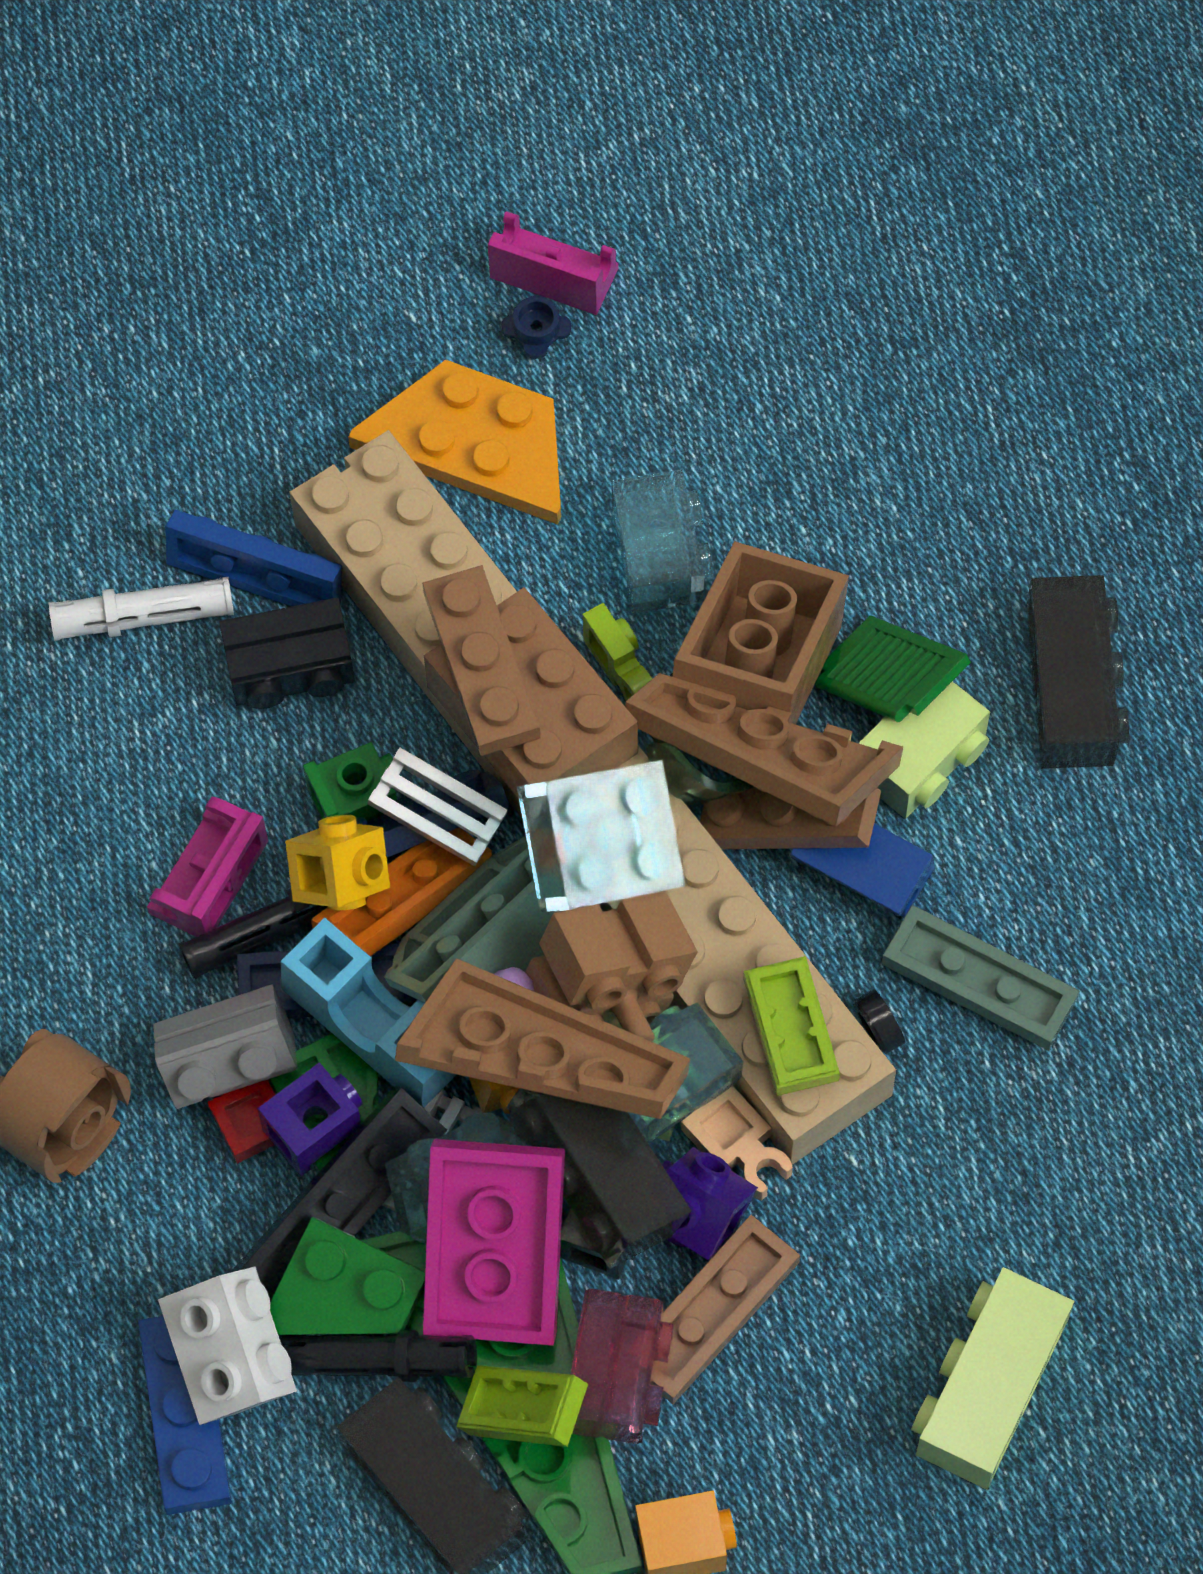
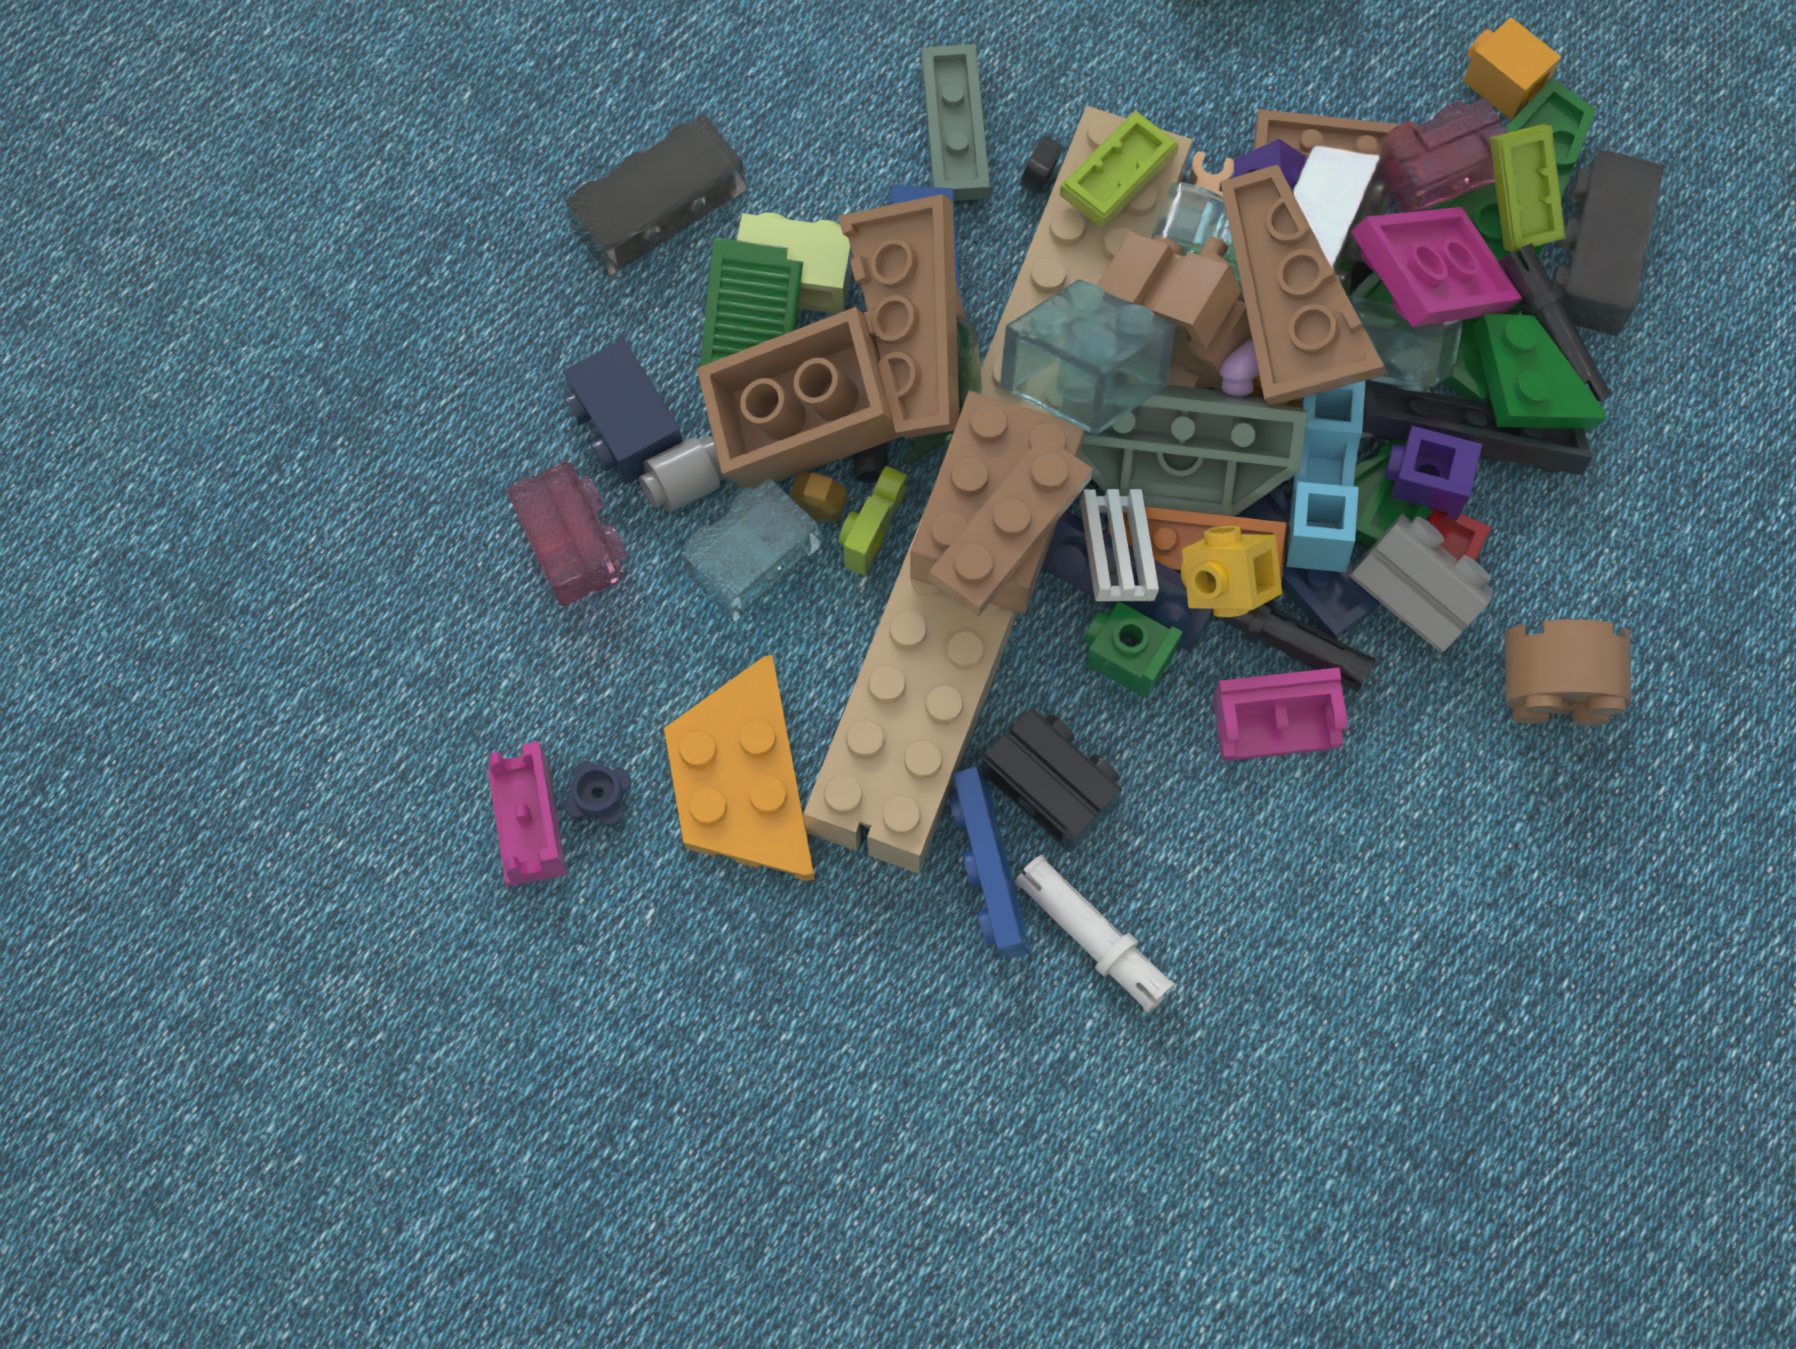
camera: 125 degrees left, 5 degrees up
(188, 1453) = (1687, 447): blue plate -> none
(227, 1345) = (1639, 420): white brick -> none
(669, 628) = (819, 496): none -> pearl gold tile
(775, 525) = (682, 474): none -> light grey brick
(780, 419) = (566, 533): none -> clear pink brick
(866, 523) = (621, 410): none -> dark blue brick

